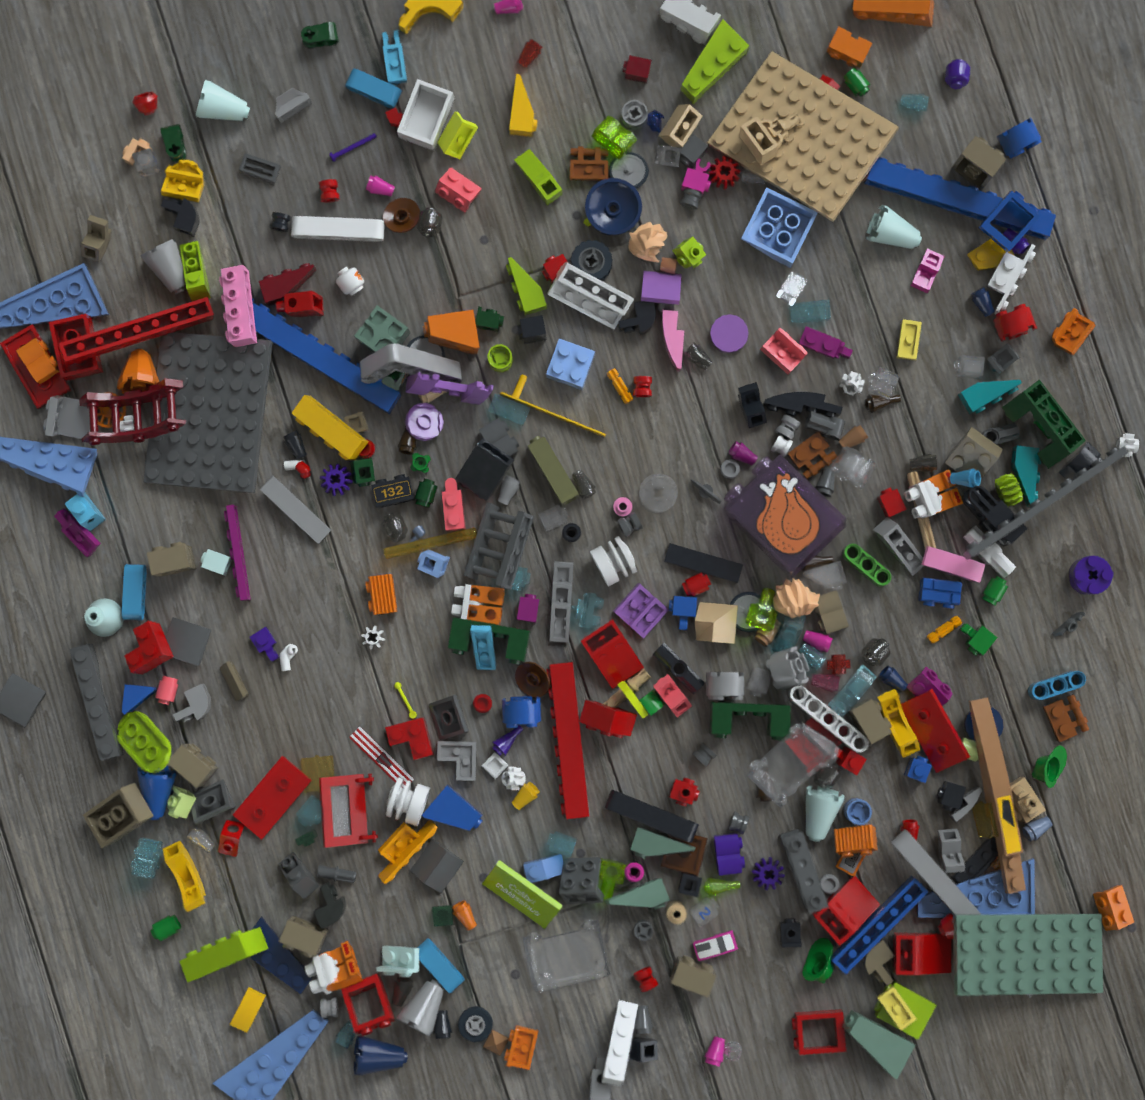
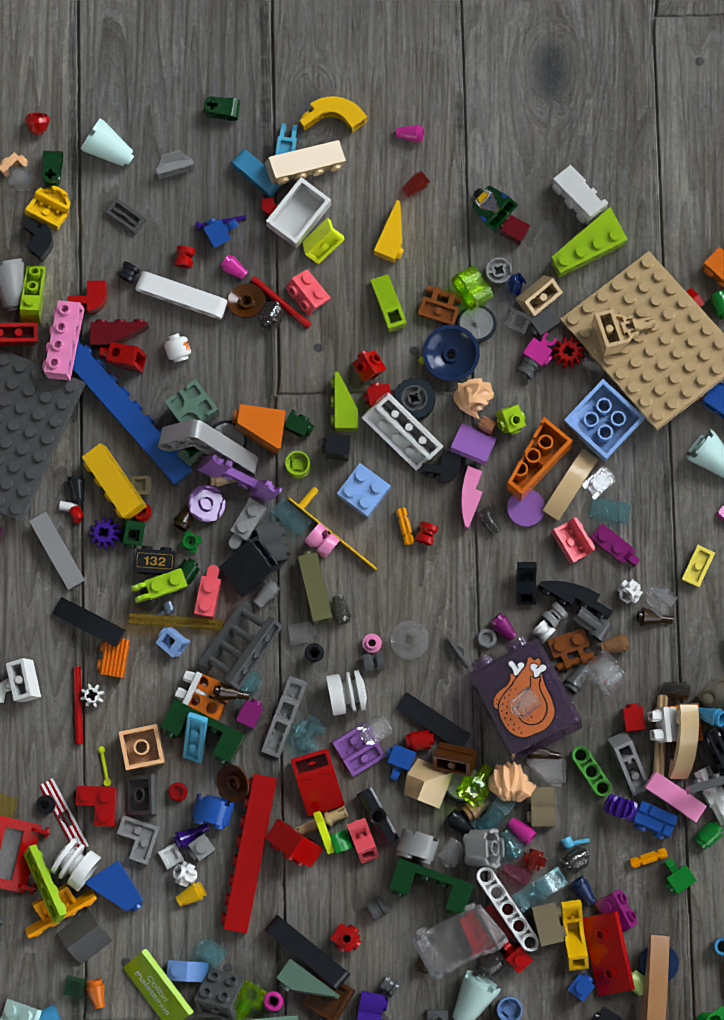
camera: 15 degrees right, 5 degrees down
(256, 255) = (96, 296): none -> red brick
(302, 643) = (23, 680): none -> white brick
(348, 568) = (89, 622): none -> black slope
(352, 156) = (217, 232): none -> blue brick
(357, 757) = (40, 804): none -> black plate
(362, 650) = (78, 705): none -> red bar
(389, 833) = (45, 884): none -> lime plate
(406, 513) = (161, 585): none -> lime hinge
(416, 64) = (305, 162): none -> brick
(435, 672) = (142, 747): none -> light nougat brick
(443, 210) = (273, 296): none -> red bar
(468, 429) = (246, 523): none -> light grey brick
(498, 596) = (226, 692): none -> dark brown cone
(521, 749) = (201, 848): none -> light grey brick
(538, 242) = (368, 365): none -> red brick
(545, 423) = (321, 540): none -> bright pink wheel
(610, 52) = (493, 206): none -> dark green torso
(651, 588) = (375, 730): none -> clear brick
(730, 276) = (541, 455): none -> orange wedge
(735, 592) = (455, 759): none -> reddish brown brick
(756, 650) = (459, 822): none -> black cone
(765, 298) = (570, 484): none -> tan slope
(788, 520) = (524, 703): none -> clear brick
(864, 638) = (568, 842): none -> medium azure hand
(905, 590) = (620, 807): none -> dark purple gear
(950, 509) = (686, 741): none -> tan slope

